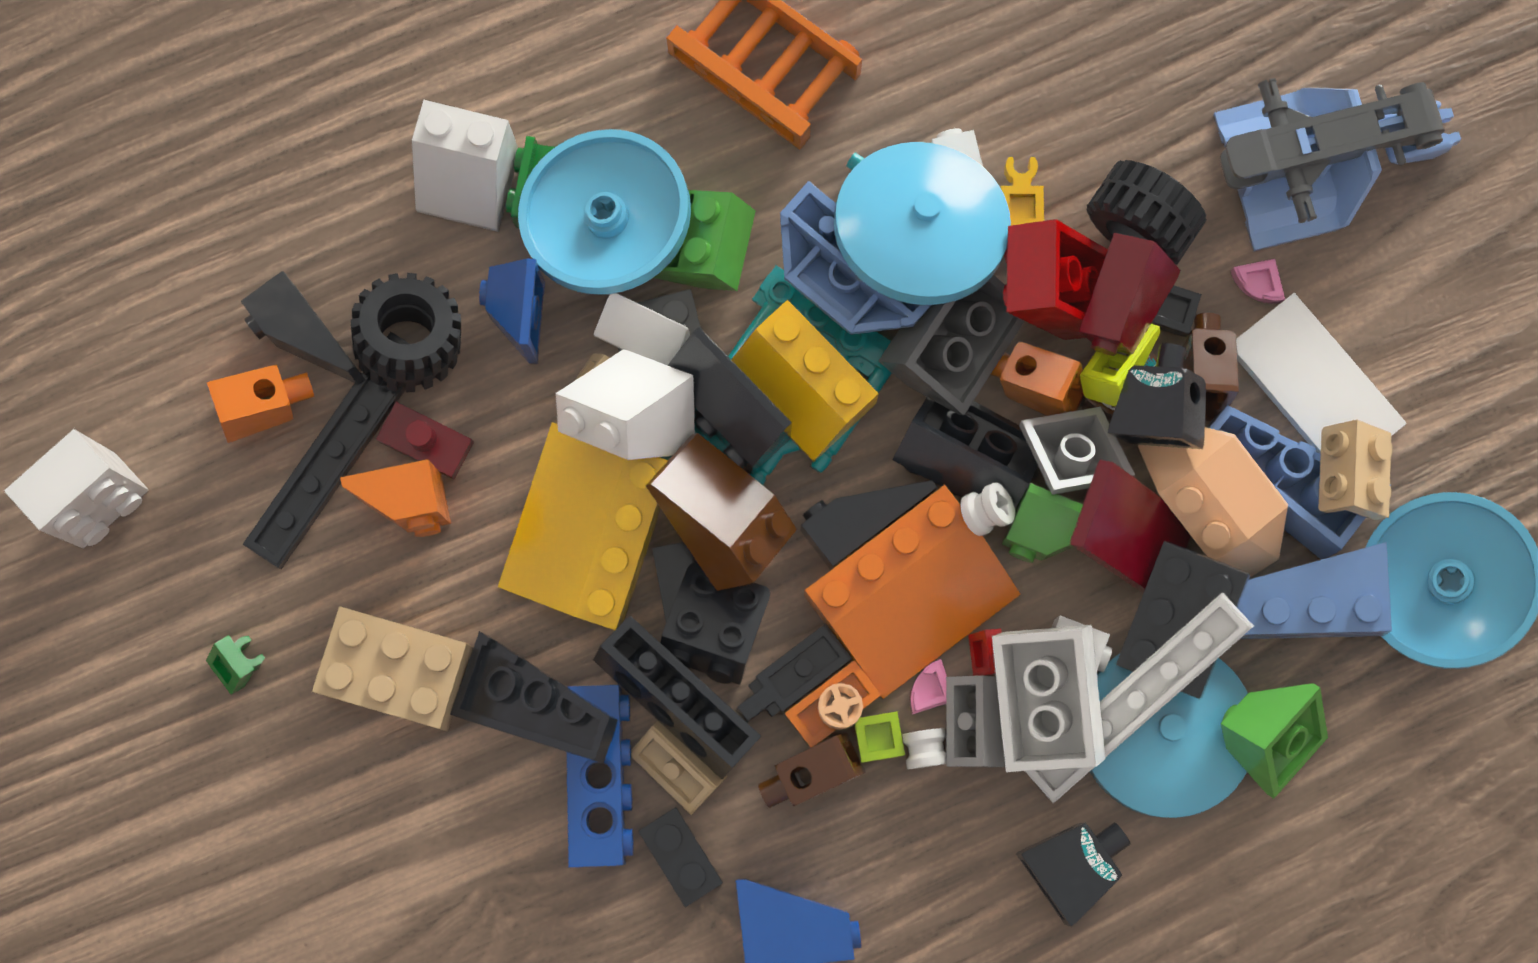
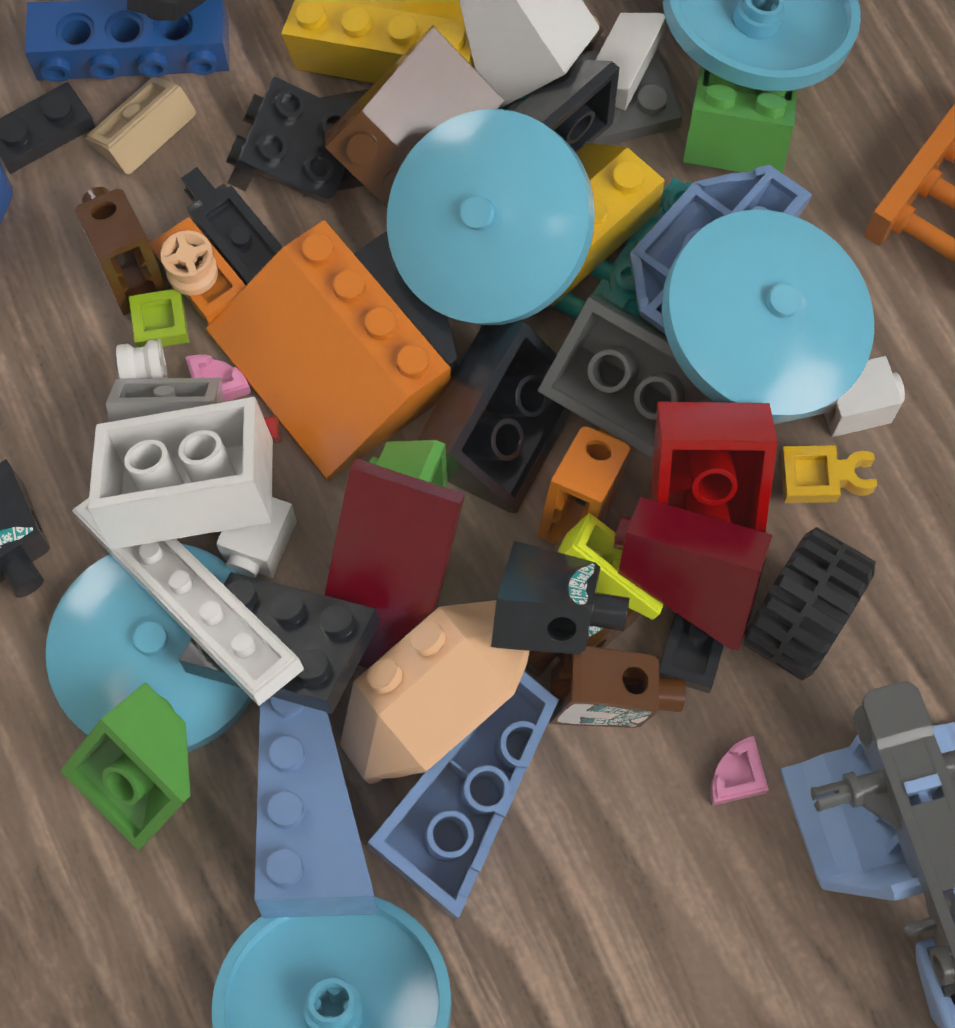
camera: 90 degrees right, 10 degrees down
(676, 697) = (206, 103): black brick -> none
(828, 443) = (490, 217): none -> medium azure dish
(987, 509) = (409, 401): white wheel -> none
(1070, 447) = (498, 506): light grey slope -> none
(1310, 374) = (600, 844): white tile -> none
(1355, 469) = (473, 861): tan bracket -> none

